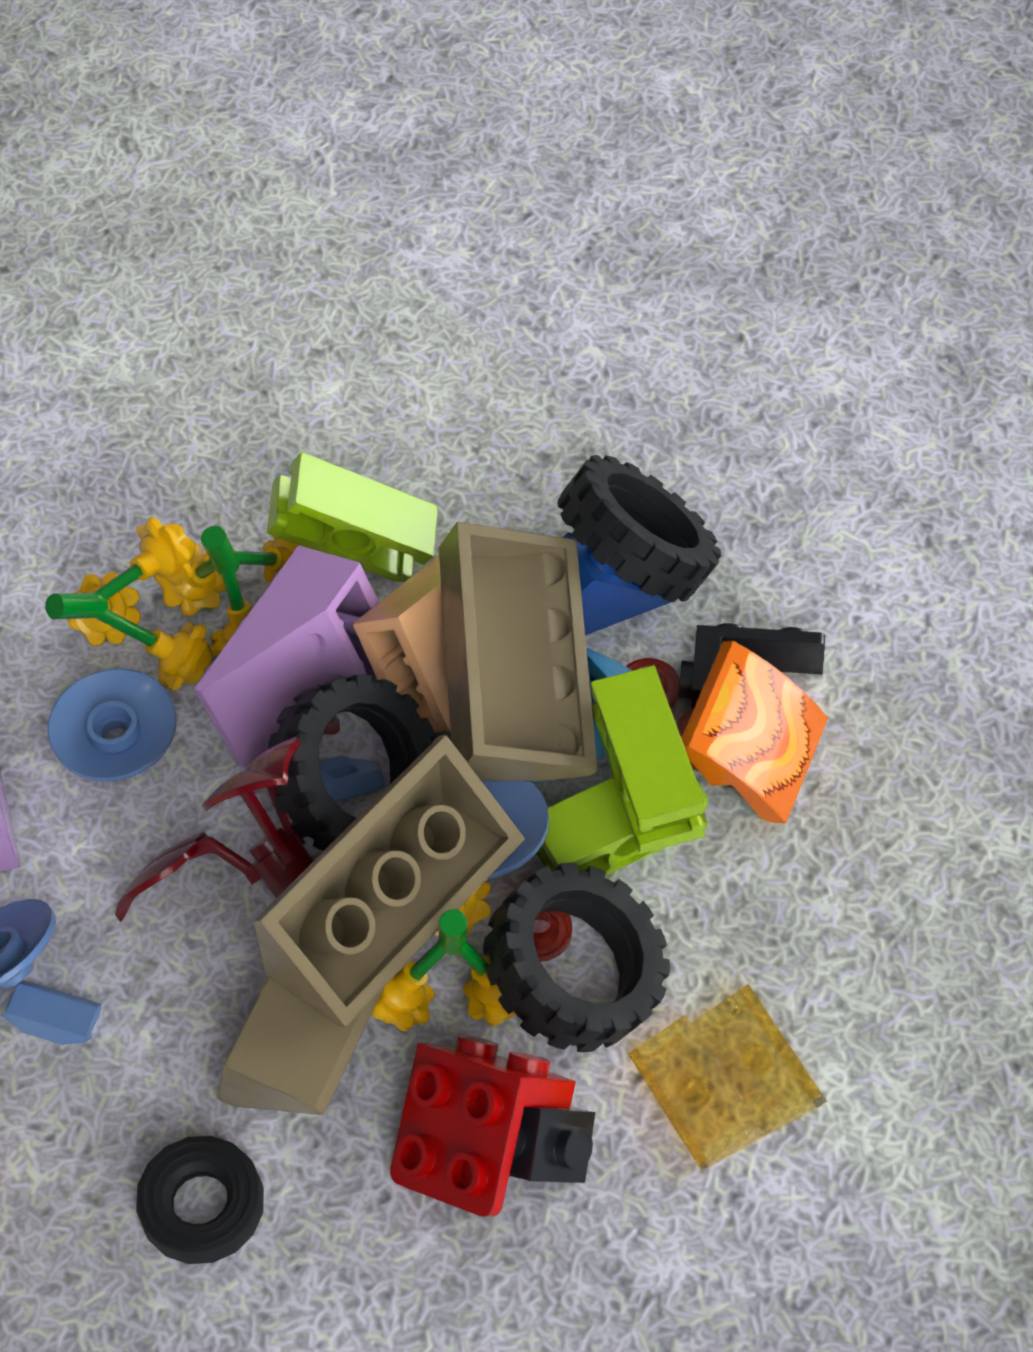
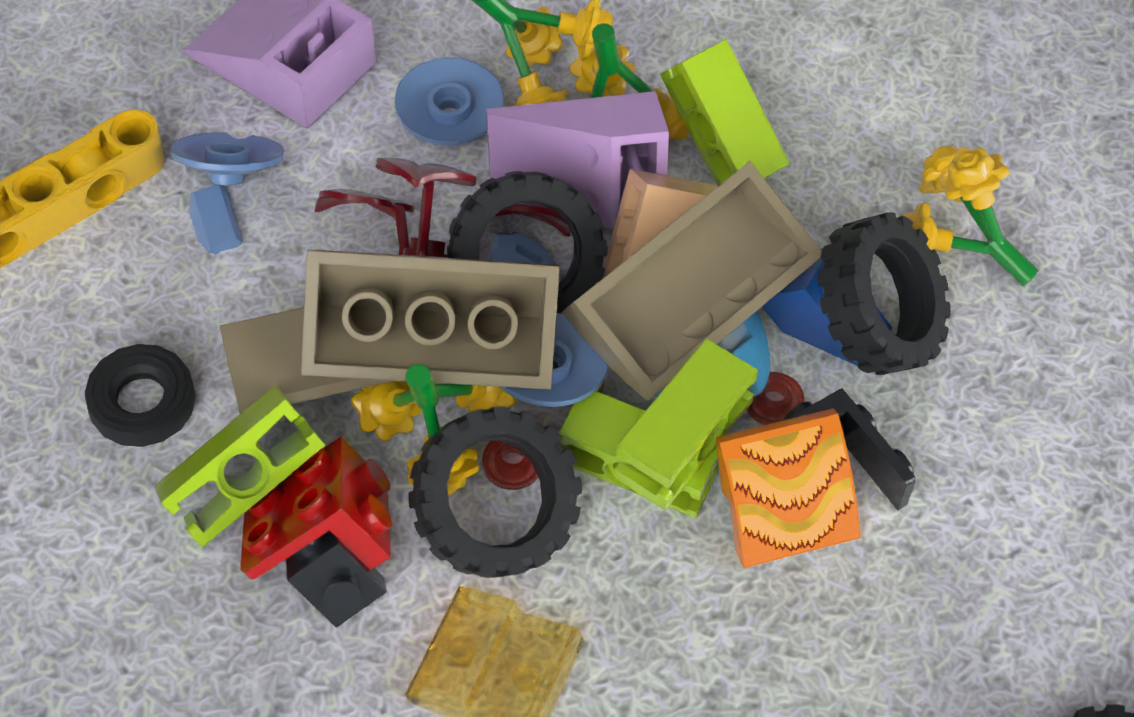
camera: 45 degrees right, 0 degrees up
(375, 1149) = (240, 492): none -> lime piece
(594, 381) = (969, 179): none -> yellow plant

